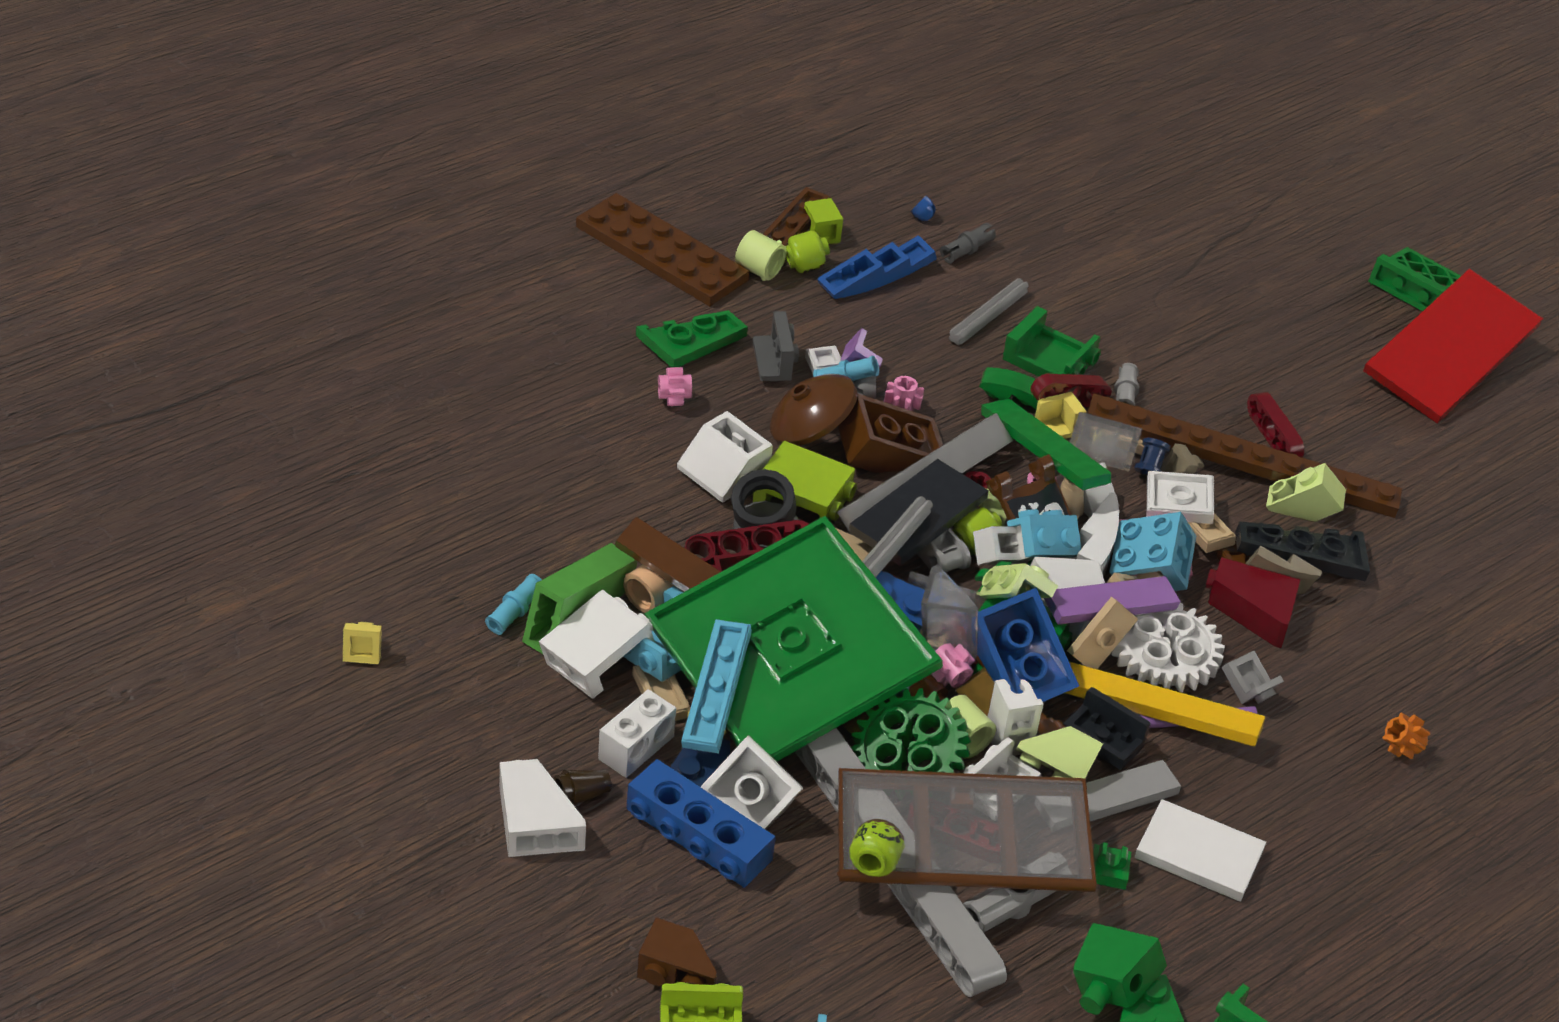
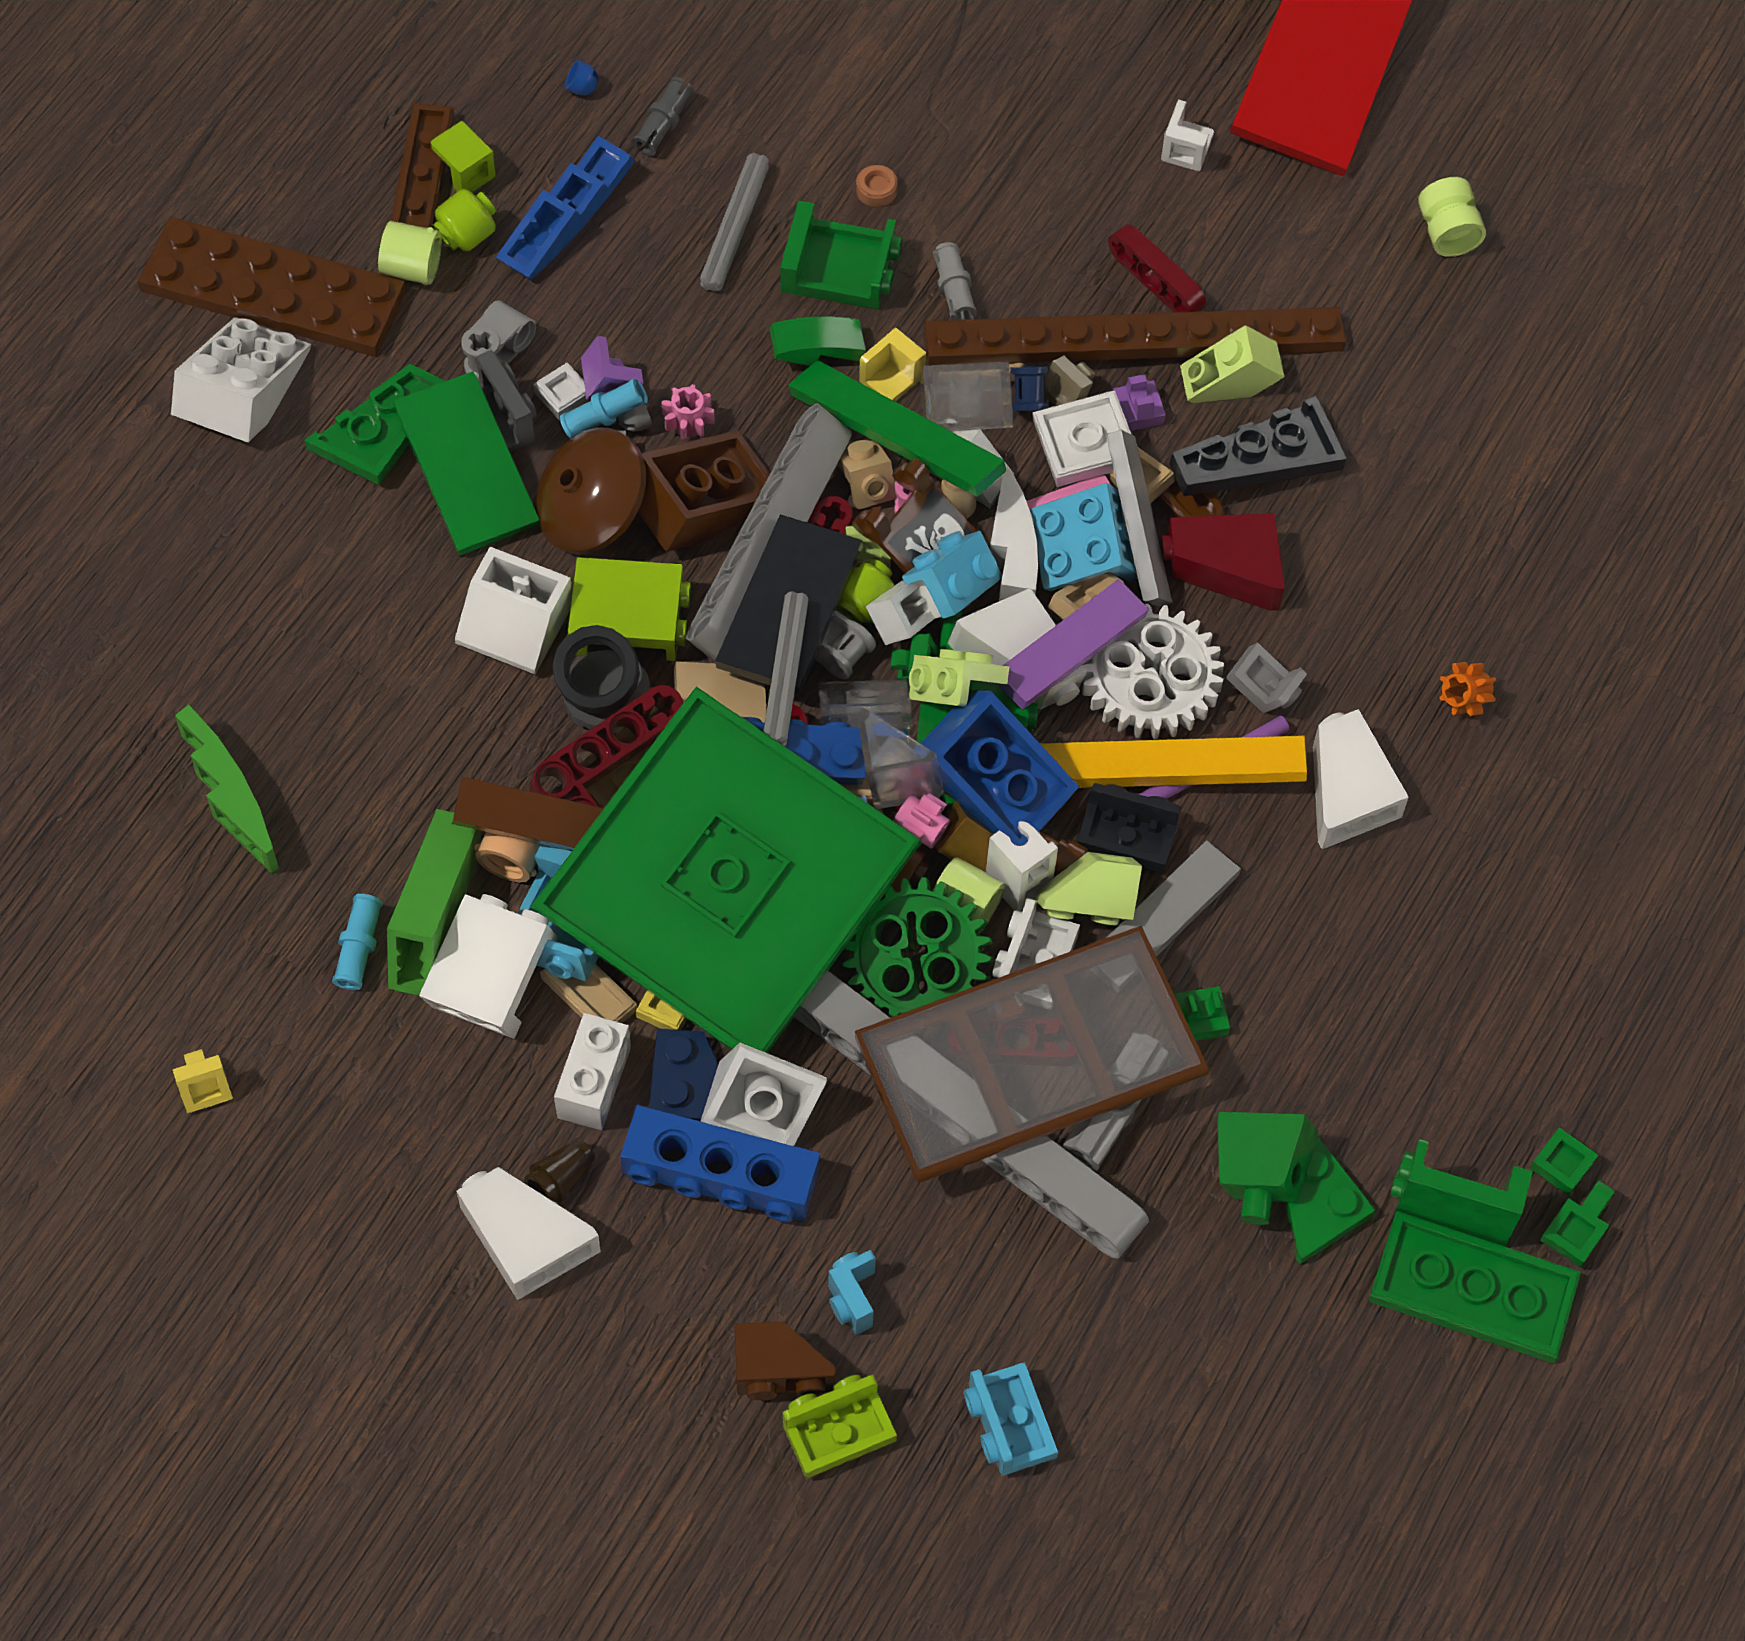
camera: 20 degrees left, 20 degrees up
(476, 490) = (231, 796): none -> bright green slope
(610, 283) = (237, 378): none -> white slope
(674, 386) = (398, 519): bright pink gear -> none
(716, 686) = (665, 977): medium azure tile -> none
(738, 370) = (466, 463): none -> green tile
(756, 928) = (849, 1301): none -> medium azure bracket
(800, 312) = (498, 329): none -> light grey piece
(877, 847) = (950, 1133): lime head -> none
(1015, 463) = (868, 473): none -> tan bracket
(1062, 383) = (903, 312): dark red beam -> none
(1097, 323) = (876, 186): none -> nougat tile
(1102, 634) = (1076, 697): tan plate -> none
(1197, 548) = (1139, 518): none -> light grey tile
(1200, 850) = (1293, 946): white tile -> none
(1229, 495) = (1141, 403): none -> medium lavender tile
(1292, 763) = (1352, 780): none -> white slope
(1294, 567) = (1258, 499): dark tan slope -> none
(1327, 366) = (1185, 142): none -> white panel
(1508, 462) = (1452, 216): none -> yellowish green wheel

